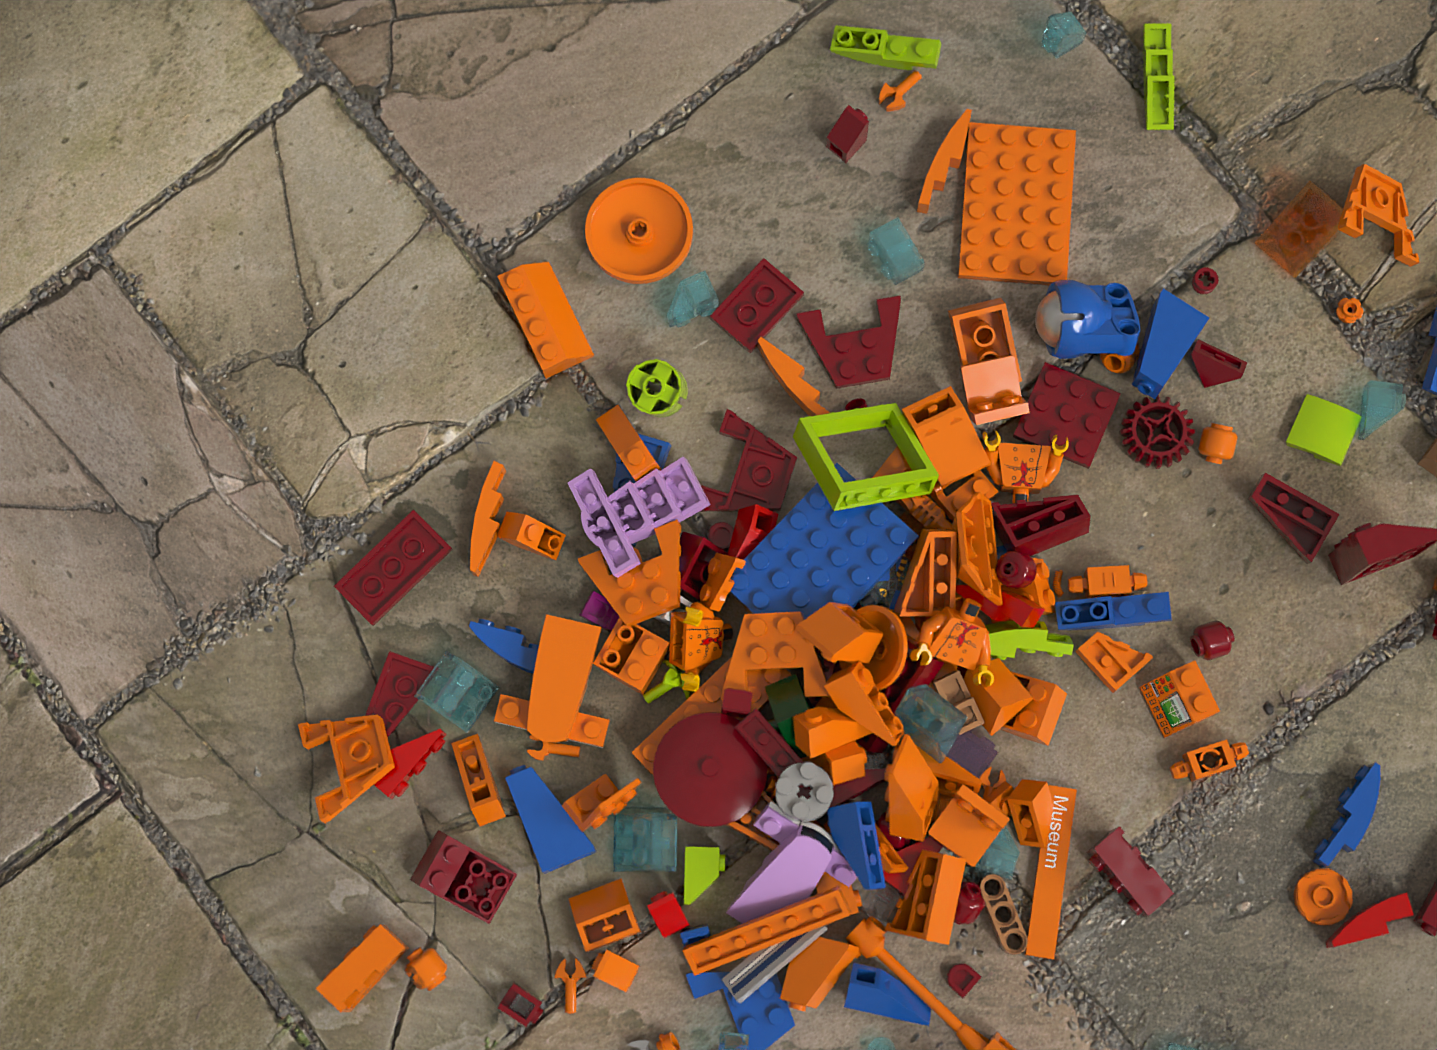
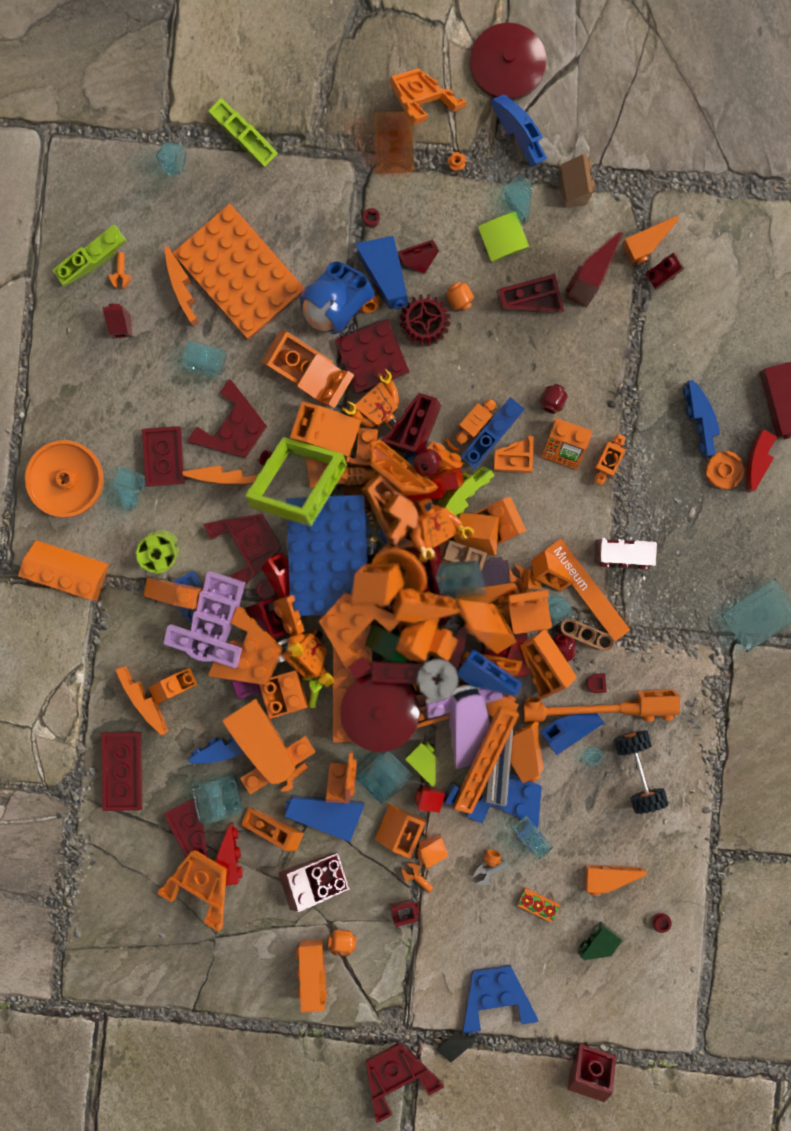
camera: 55 degrees left, 10 degrees up
(940, 592) = (405, 516): none -> orange brick

